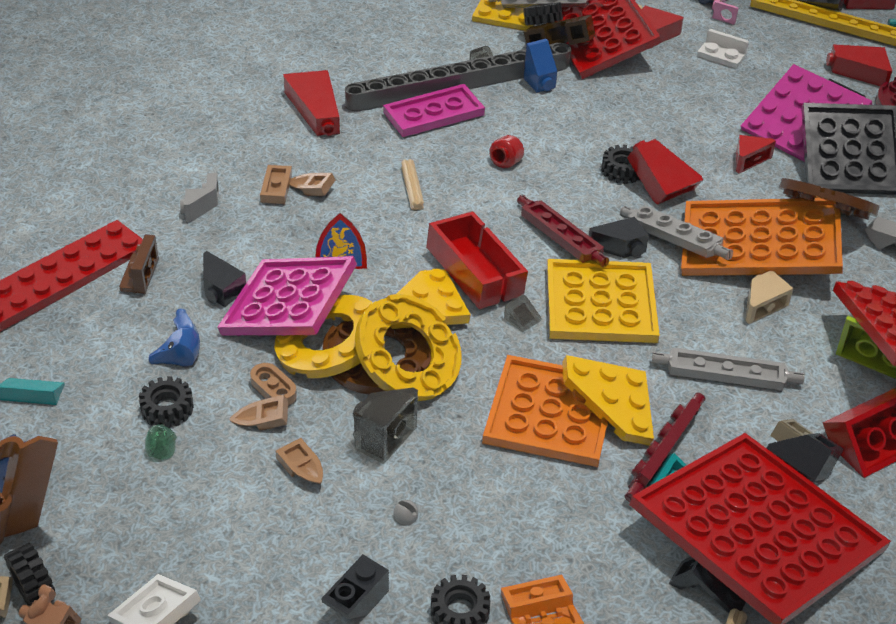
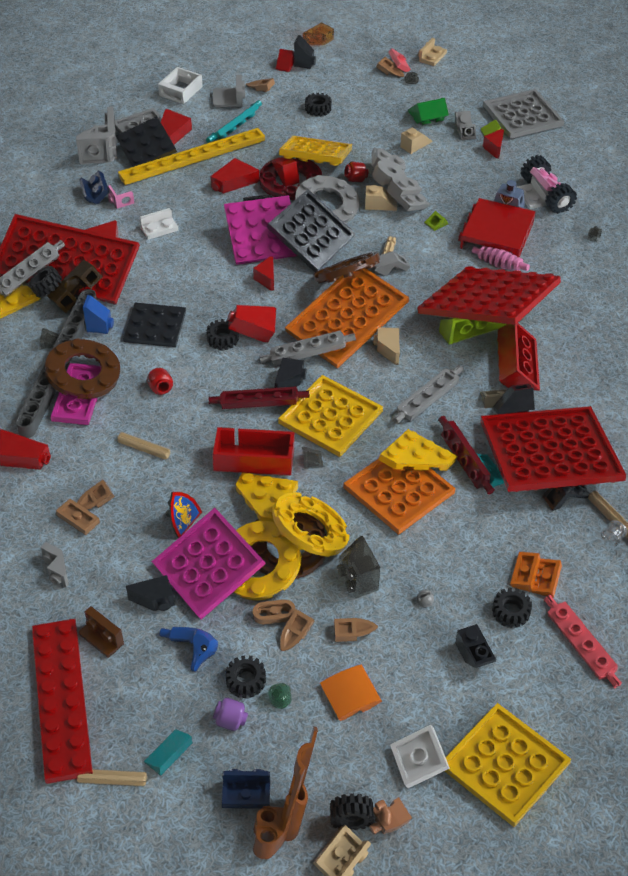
camera: 55 degrees left, 5 degrees up
(105, 411) = (230, 714): none -> medium lavender head
(211, 503) = (350, 692): none -> orange slope
(456, 114) = (84, 389): none -> reddish brown plate
(584, 115) = (154, 324): none -> black plate

